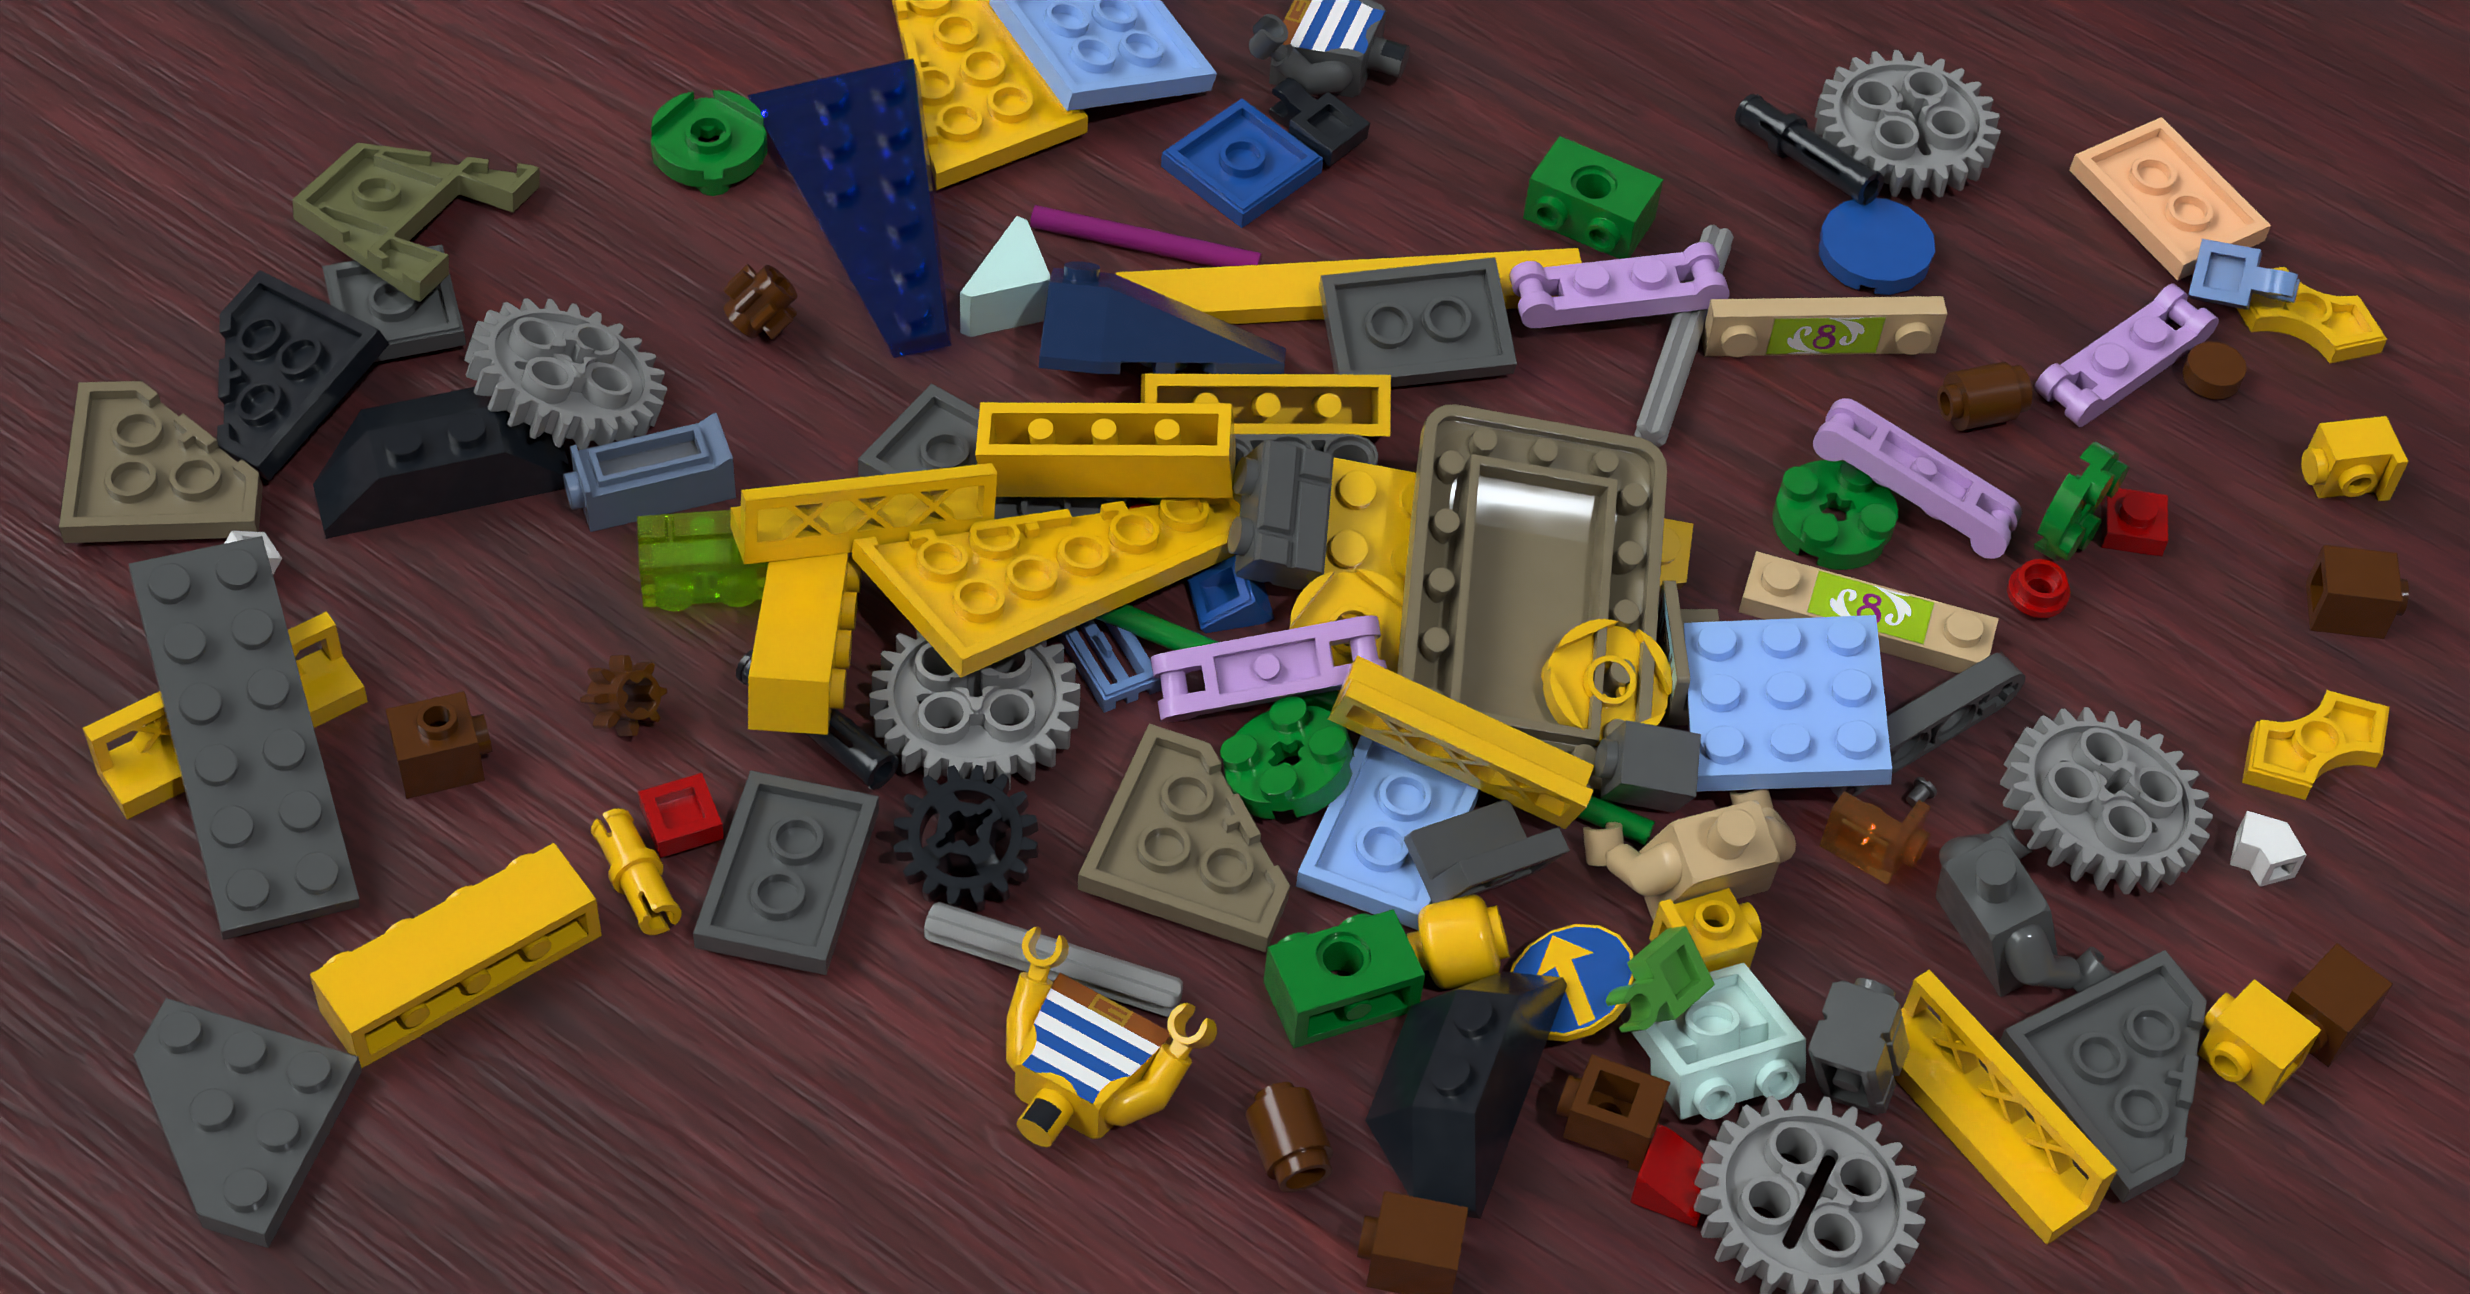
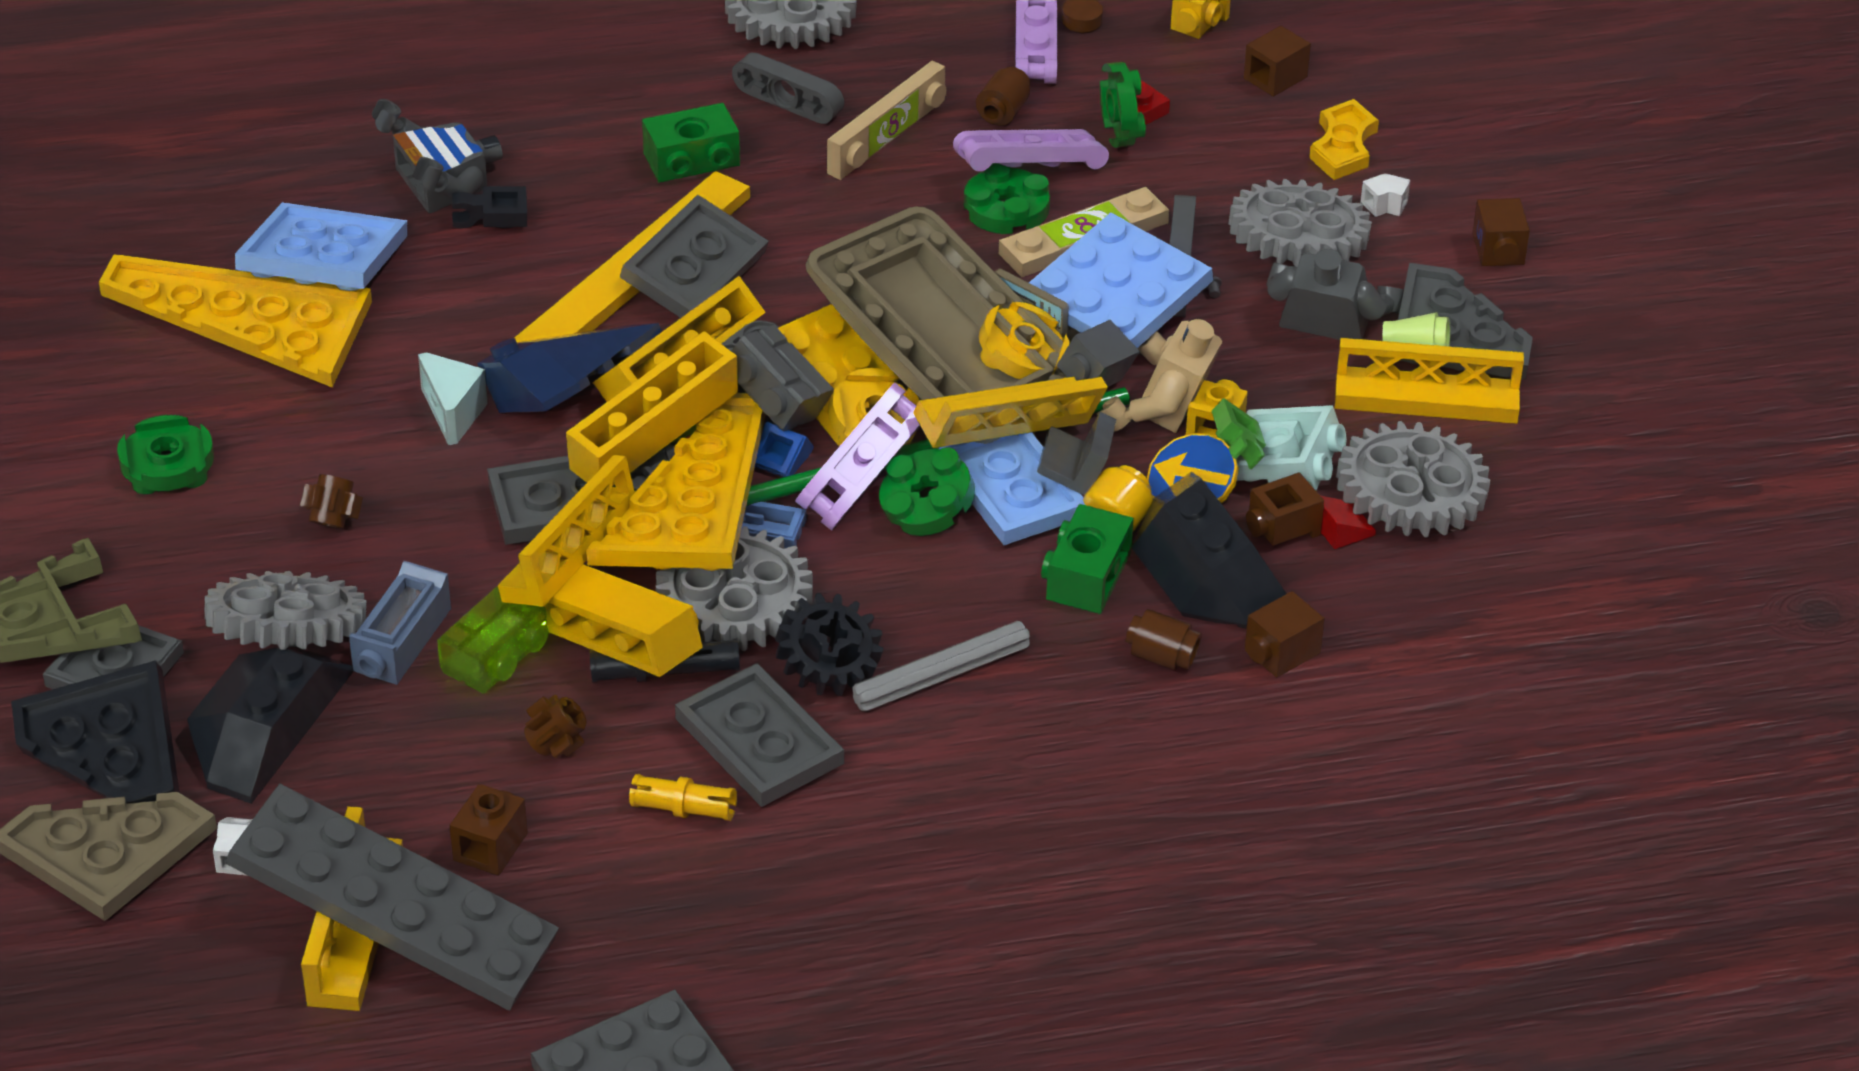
camera: 45 degrees left, 10 degrees down
(456, 954) = (653, 904): yellow brick -> none
(680, 815) = (665, 754): red plate -> none
(867, 179) = (299, 408): clear blue wing -> none
(1086, 1056) = (1025, 684): torso -> none
(1141, 238) = (483, 328): magenta bar -> none
(1185, 846) = (931, 568): dark tan plate -> none
(1241, 162) = (477, 257): blue tile -> none
(1618, 287) = (770, 168): lavender plate -> none
(1677, 356) = (819, 170): light grey axle -> none
(1773, 215) = (813, 96): none -> dark grey beam
(1791, 137) = (810, 42): black pin -> none
(1859, 1045) = (1358, 387): dark grey brick -> none
(1873, 839) = (1232, 313): clear orange bracket -> none
(1876, 246) = (854, 68): blue tile -> none
(2034, 1042) = (1422, 329): none -> yellowish green cone
(2039, 588) = (1143, 161): red plate -> none
(2256, 1040) = (1493, 268): yellow brick -> none

